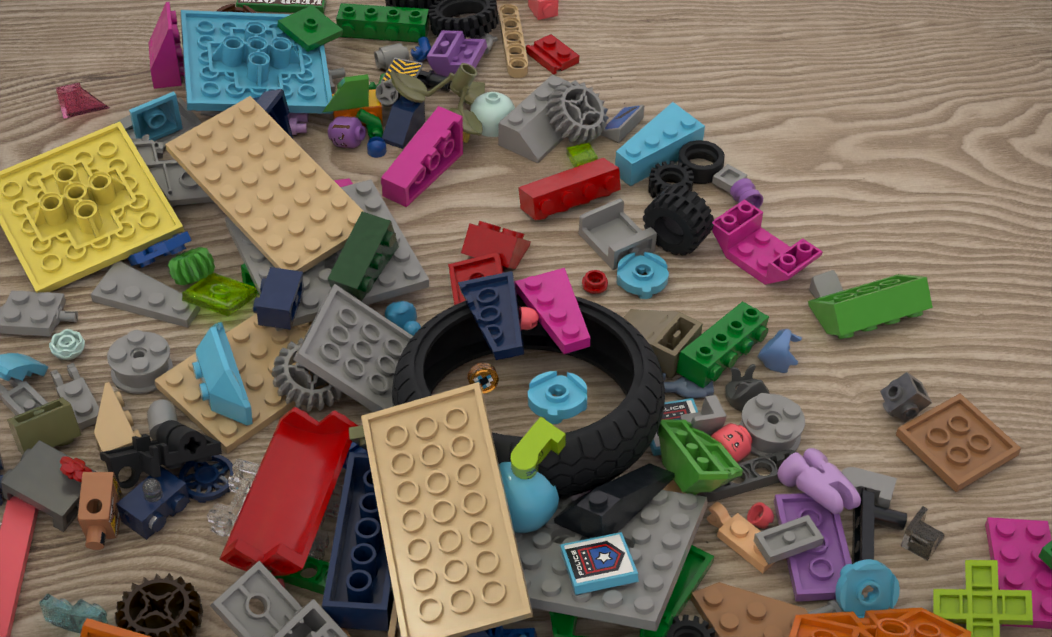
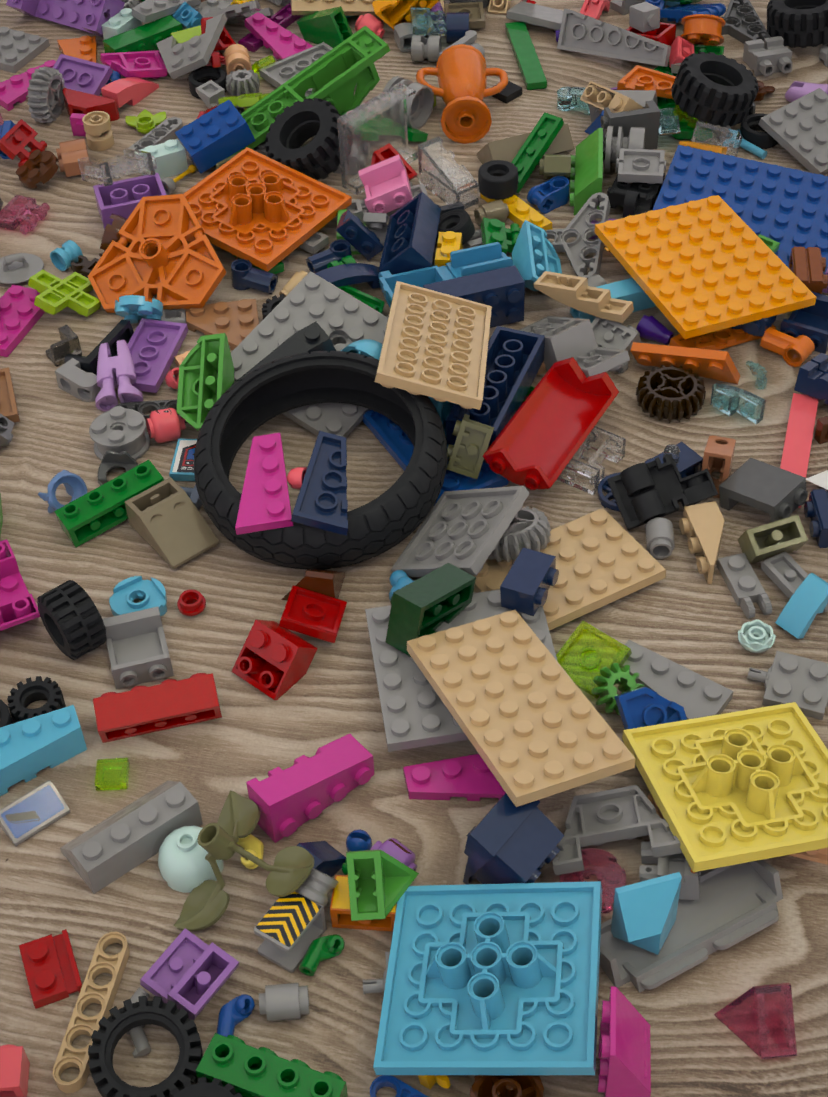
camera: 160 degrees left, 0 degrees up
(73, 468) = (739, 475): red plant -> none
(138, 361) = (679, 598): light grey wheel -> none
(221, 377) = (599, 537): medium azure wedge -> none
(310, 28) = (396, 1024): green plate -> none
(432, 79) = (245, 948): black axle -> none
(485, 375) = (366, 412): clear orange tile -> none
(534, 448) = (348, 340): lime leg -> none
(570, 397) = (313, 400): medium azure plate -> none
(581, 109) = (89, 806): light grey gear -> none
(599, 563) = (333, 313): tile -> none
(710, 418) = (176, 439): light grey panel -> none
(788, 539) = (170, 343): light grey plate -> none

